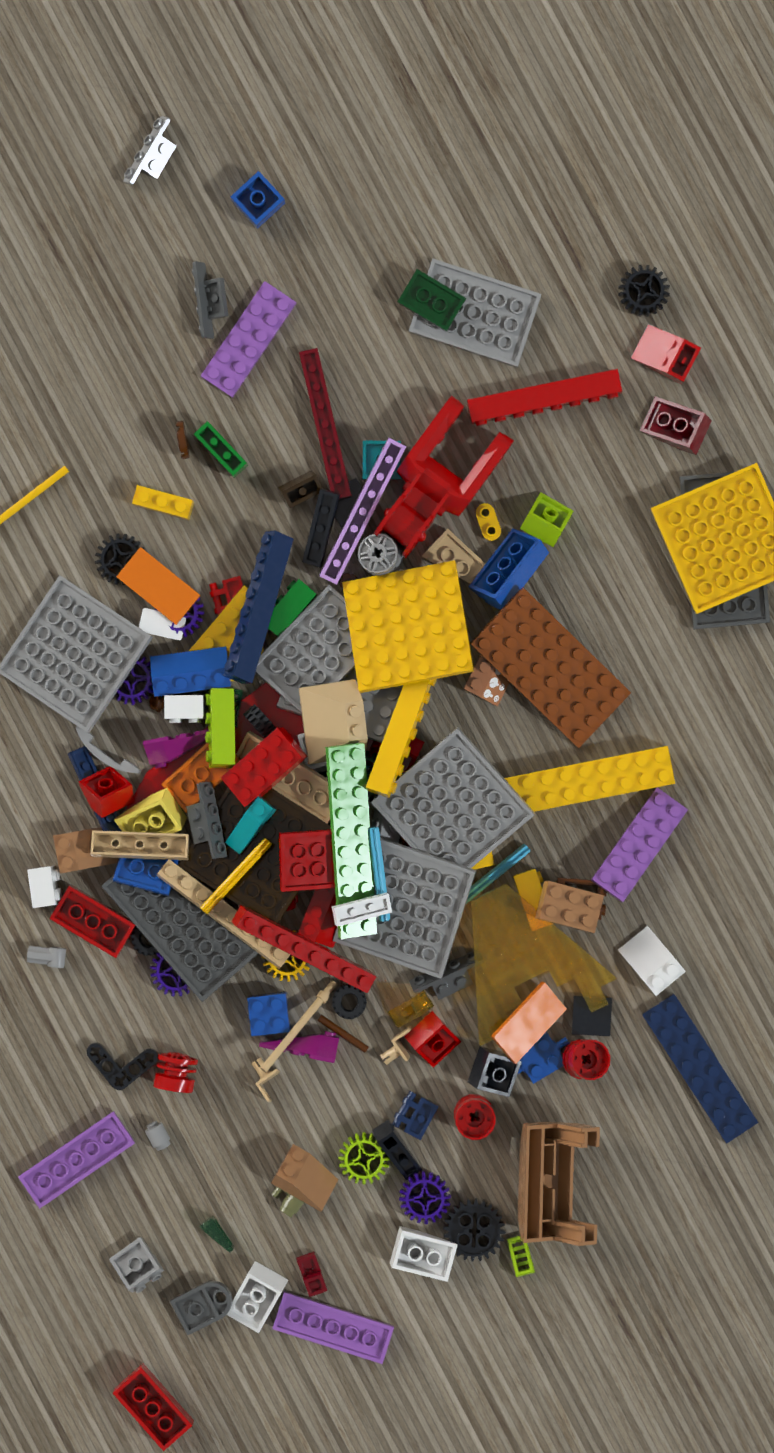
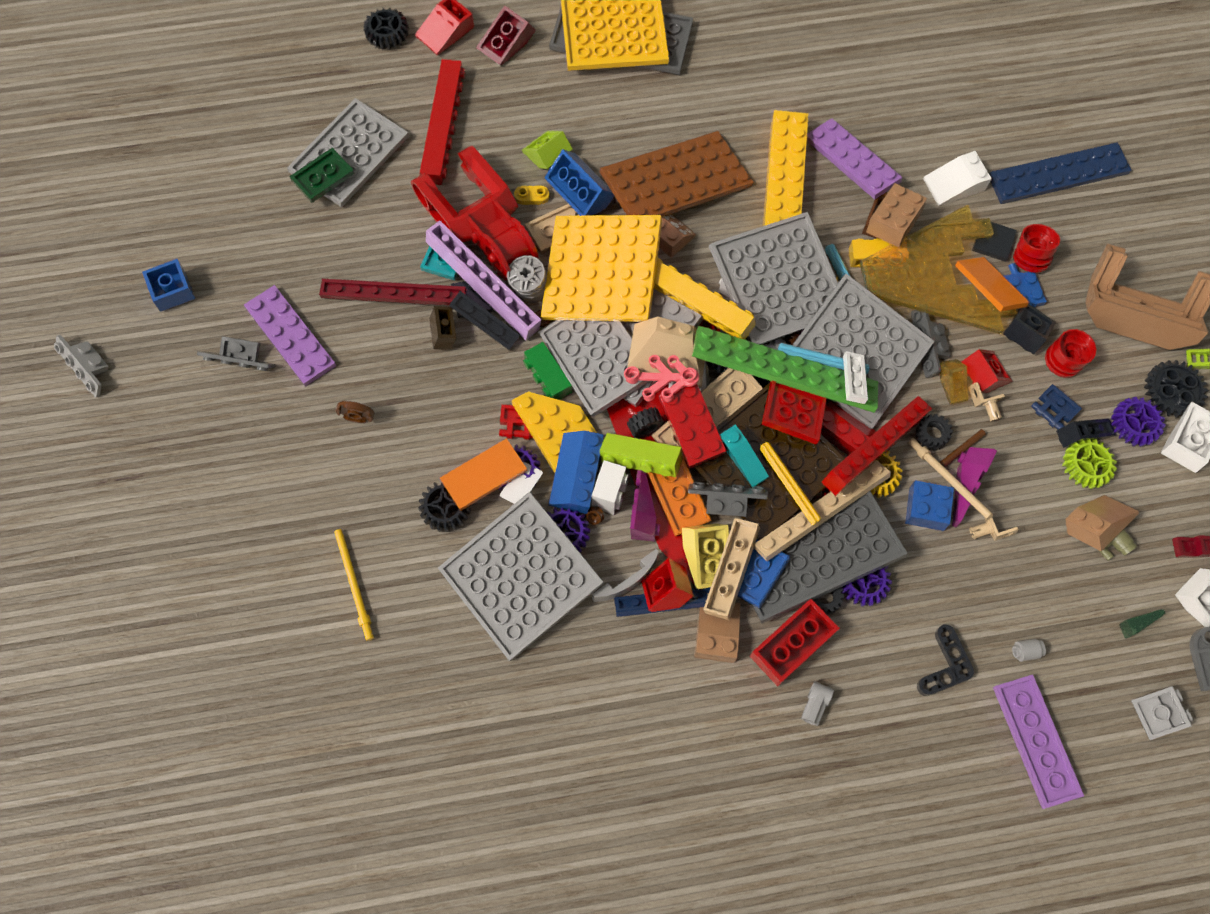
camera: 75 degrees left, 20 degrees down
(44, 886) = (745, 678): white brick -> none
(163, 502) = (406, 450): yellow brick -> none
(175, 1072) = (974, 610): red wheel -> none
(220, 449) = (378, 383): green brick -> none
(258, 607) = (538, 391): dark blue brick -> none
(294, 727) = (663, 378): none -> coral plant

